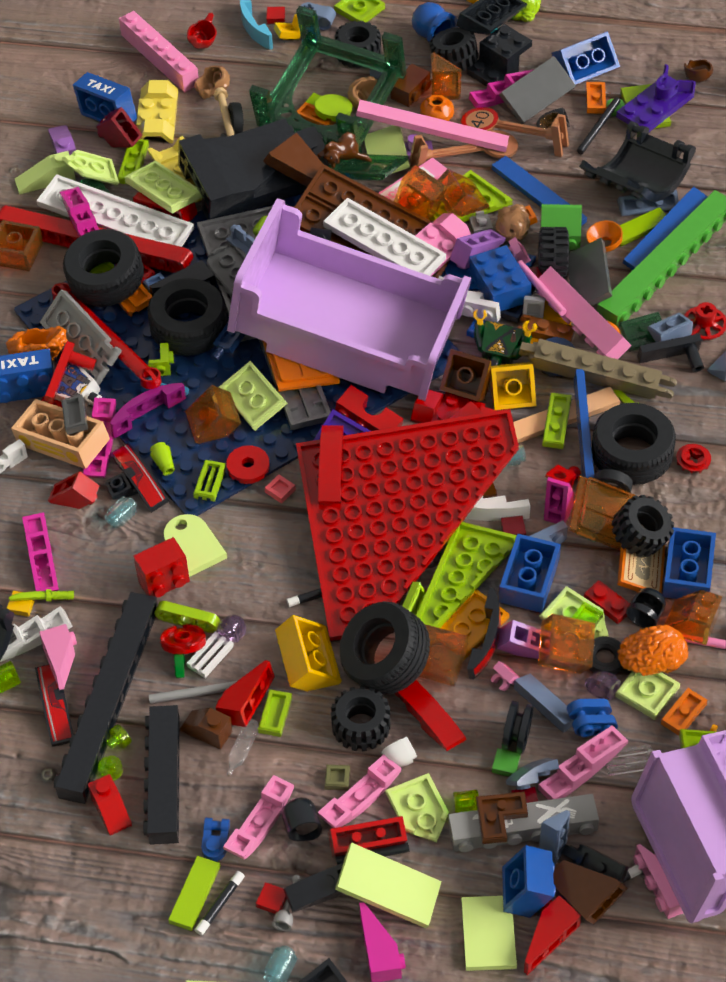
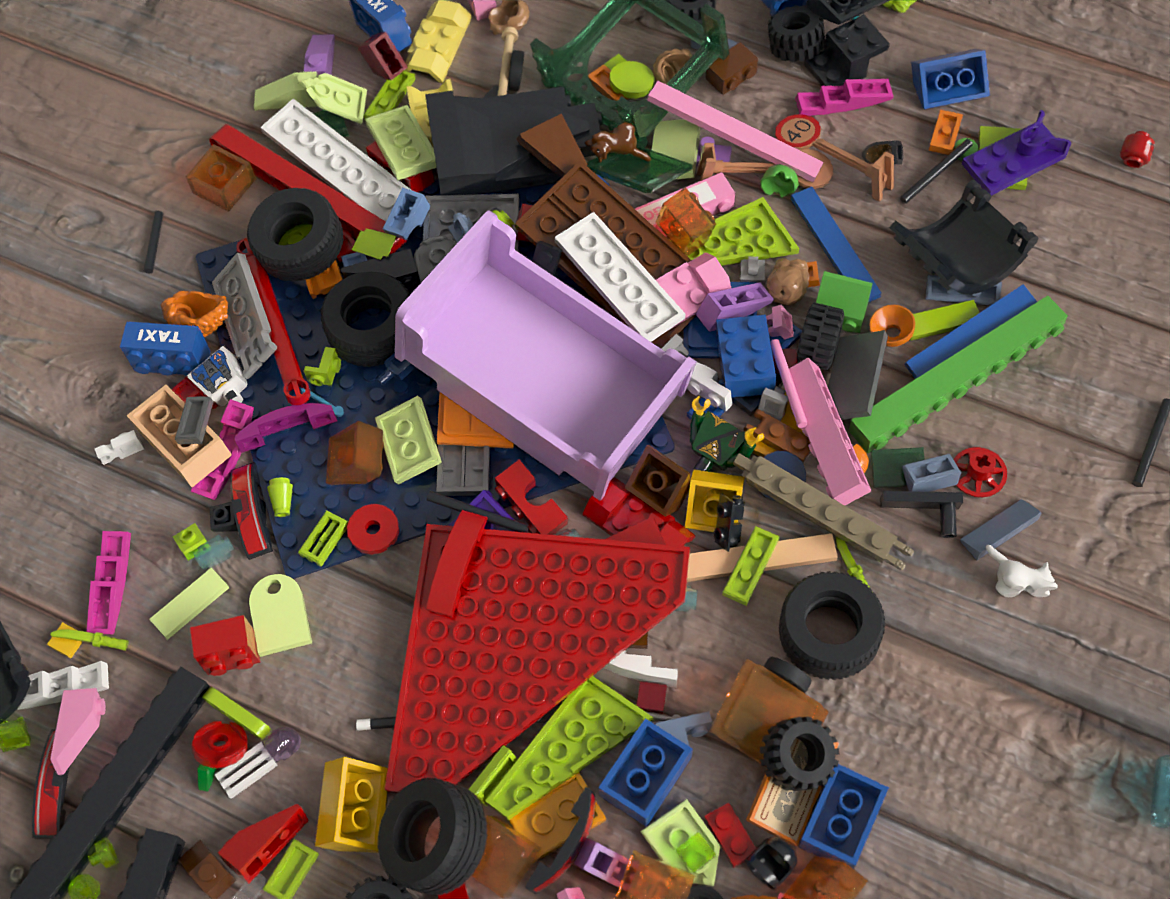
camera: 20 degrees right, 10 degrees up
(67, 356) = (214, 341): red piece -> none
(74, 491) = (172, 512): red slope -> none
(79, 211) = (298, 155): dark pink slope -> none
(99, 505) = (189, 540): none -> lime bracket
(114, 553) = (189, 603): none -> yellowish green tile
(170, 262) = (374, 243): none -> lime sticker
(189, 692) = (209, 814): light grey bar -> none
(190, 234) = (406, 213): none -> medium blue arch
(280, 488) = (399, 569): coral plate -> none
(317, 425) = (492, 517): none -> black bar
(442, 111) = (753, 112): orange piece -> none
(445, 78) = (770, 71): clear orange slope -> none
(461, 195) = (737, 229): clear orange slope -> none
(479, 155) = (779, 180): none -> bright green hair
(529, 401) = (728, 533): none -> black hinge
(537, 90) = (877, 108): dark grey tile -> none
(558, 501) = (712, 683): dark pink slope -> none
(563, 474) = (729, 651): red bracket -> none
(583, 424) = (778, 587): blue tile -> none
(697, 452) = (909, 653): red gear -> none
(698, 70) = (1082, 123): reddish brown hair -> none

